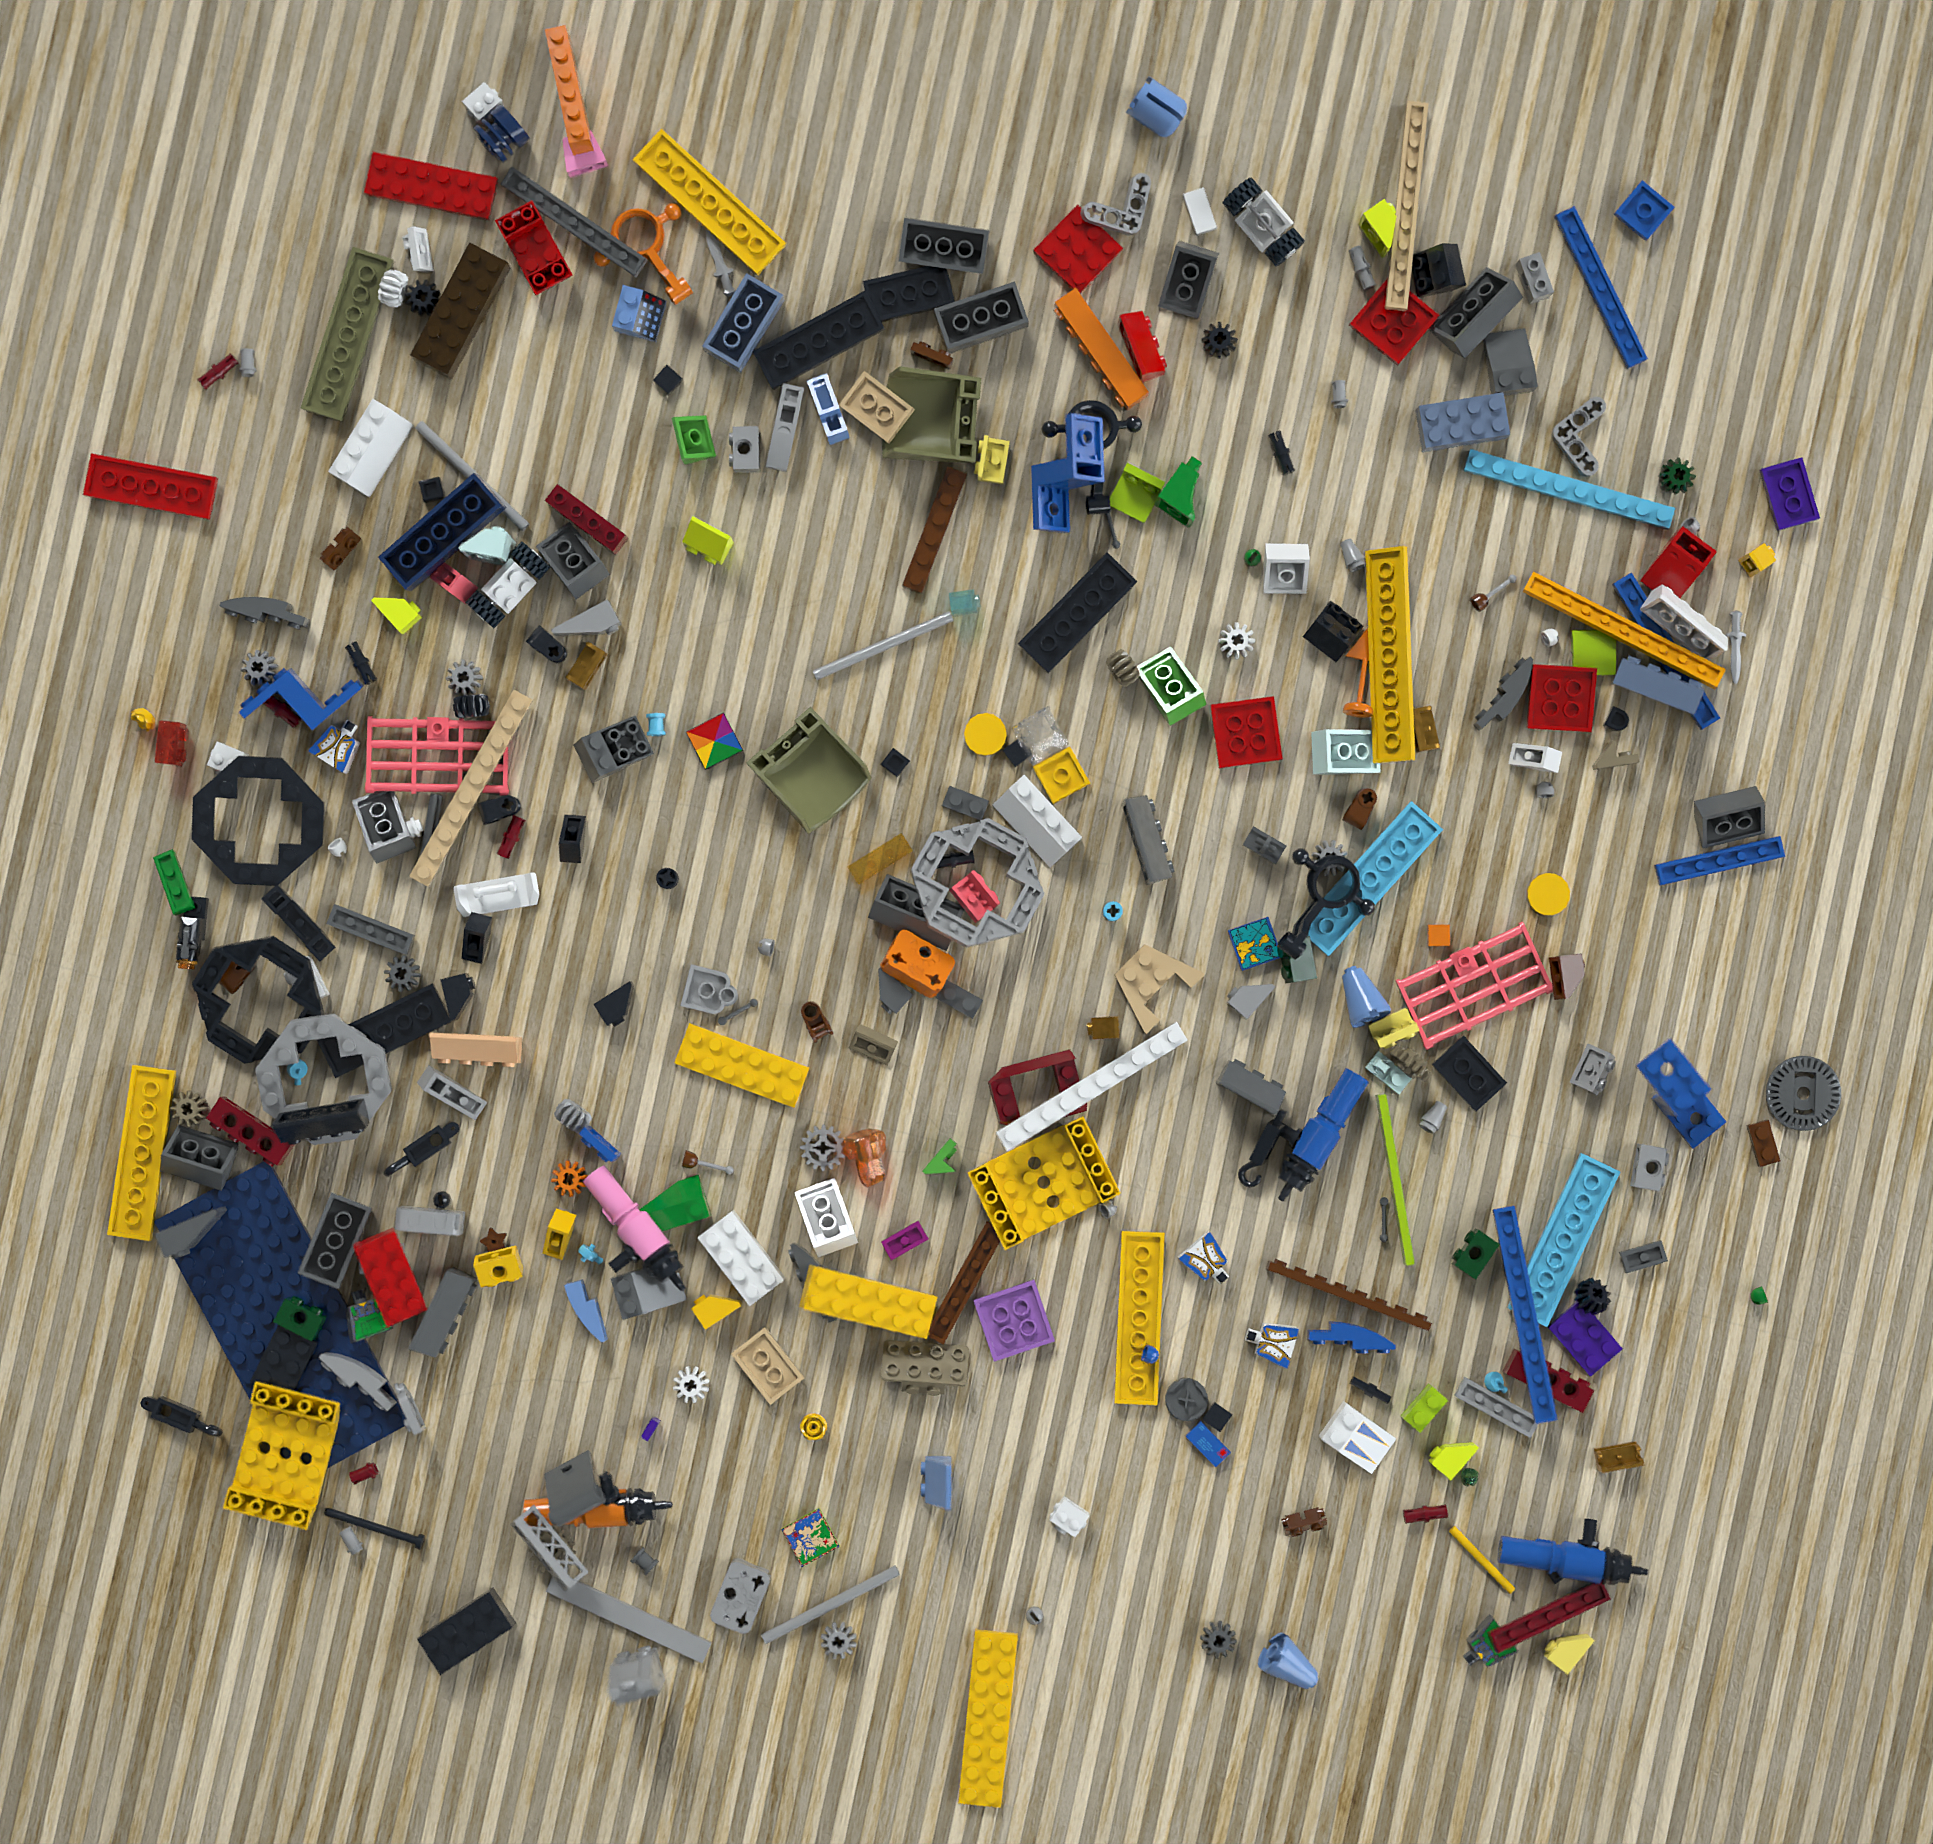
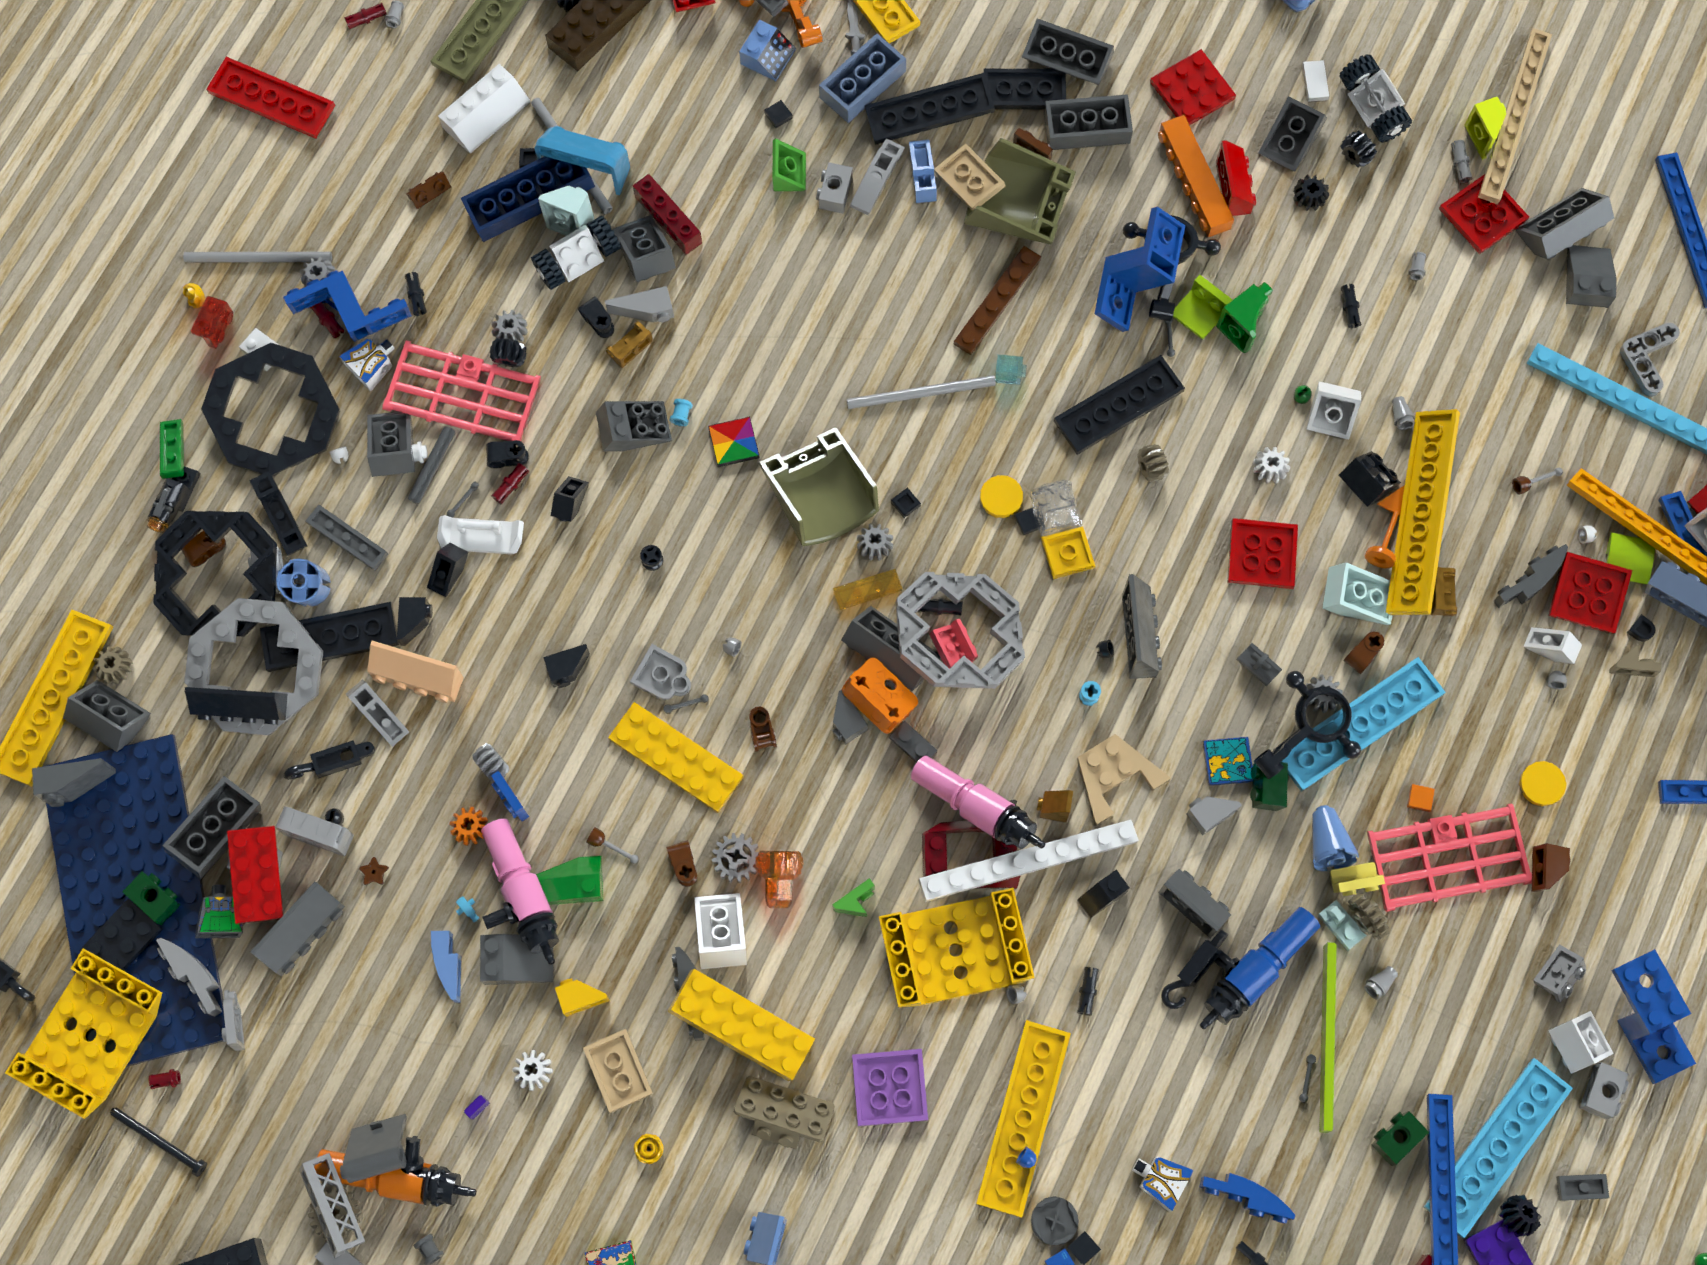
camera: 10 degrees right, 15 degrees down
(193, 661) = (255, 256): none -> light grey piece
(219, 1120) = (144, 675): dark red brick -> none
(257, 609) = (337, 223): dark grey slope -> none
(297, 1071) = (231, 654): medium azure piece -> none
(344, 999) = (312, 577): none -> medium blue cylinder
(351, 1541) = (128, 1149): light grey pin -> none
(399, 612) = (465, 255): neon yellow slope -> none
(409, 976) = (357, 583): dark grey gear -> none
(454, 582) = (525, 241): coral slope -> none
(462, 880) = (451, 513): none -> dark grey hinge
(471, 788) = (484, 428): tan plate -> none
(487, 480) = (585, 152): none -> dark azure windscreen
(506, 1258) = (382, 892): yellow brick -> none
(559, 1234) = (441, 879): yellow slope -> none
(707, 541) = (777, 256): neon yellow slope -> none
(741, 1258) = (621, 949): white brick -> none
(772, 1160) = (682, 860): none -> reddish brown piece
(873, 1044) = (814, 768): dark tan slope -> none
(874, 803) = (875, 549): none -> light grey gear
(904, 1240) = (795, 974): magenta plate -> none
(964, 1284) = (846, 1036): reddish brown plate -> none
(965, 803) = (965, 556): dark grey plate -> none
(993, 460) = (1068, 249): light yellow bracket -> none
(1033, 1047) = (978, 804): none -> bright pink piece
(1037, 821) = (1035, 588): white slope -> none
(1118, 863) = (1106, 649): none -> black hinge
(1128, 212) = (1246, 66): light grey beam -> none
(1166, 1098) = (1103, 893): none -> black slope
(1171, 686) = (1197, 493): bright green slope -> none
(1171, 1190) = (1088, 991): none -> black pin
(1205, 1258) = (1108, 1071): torso -> none
(1257, 282) = (1358, 149): none -> black gear
(1358, 1297) = (1263, 1154): reddish brown plate -> none
(1437, 270) = (1535, 177): black slope -> none
(1462, 422) = (1535, 316): sand blue brick -> none
(1469, 1073) = (1427, 945): black plate -> none
(1534, 278) = (1628, 204): light grey brick -> none
(1621, 1128) = (1580, 1042): none -> white slope

